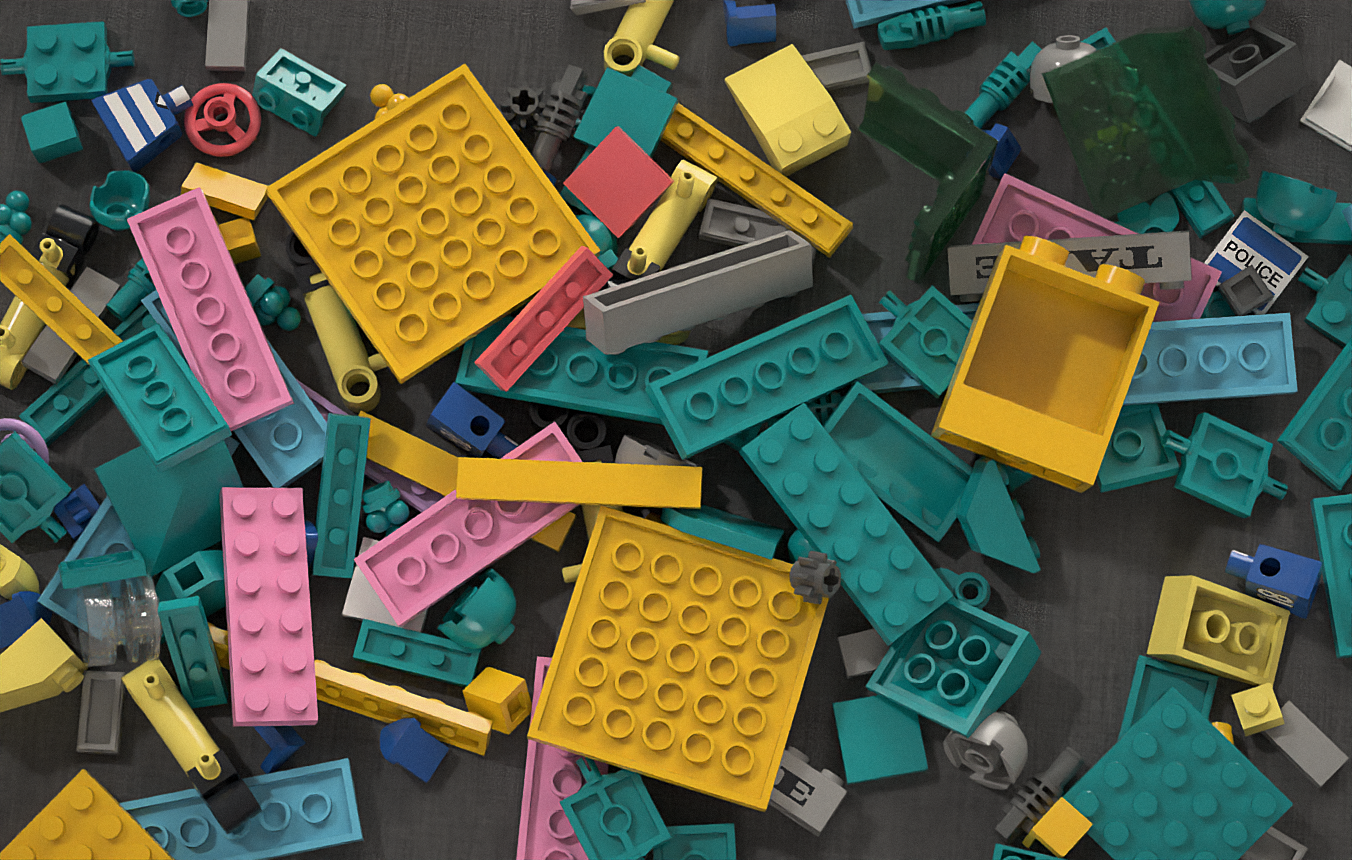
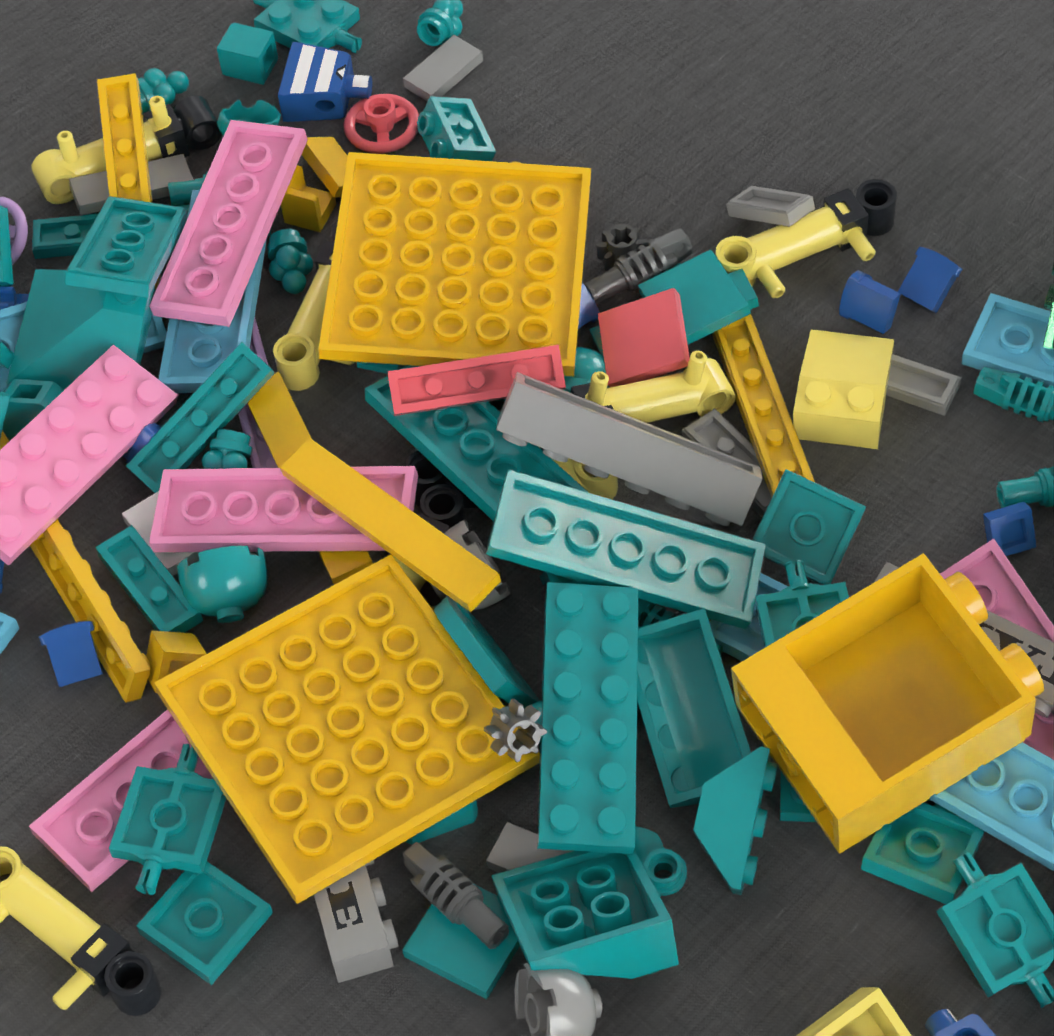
camera: 45 degrees right, 20 degrees down
(460, 411) = (350, 426): blue torso -> none
(854, 719) = (454, 895): none -> dark grey hinge
(863, 256) = (808, 525): none -> teal tile
(939, 144) = (930, 499): clear green bracket -> none

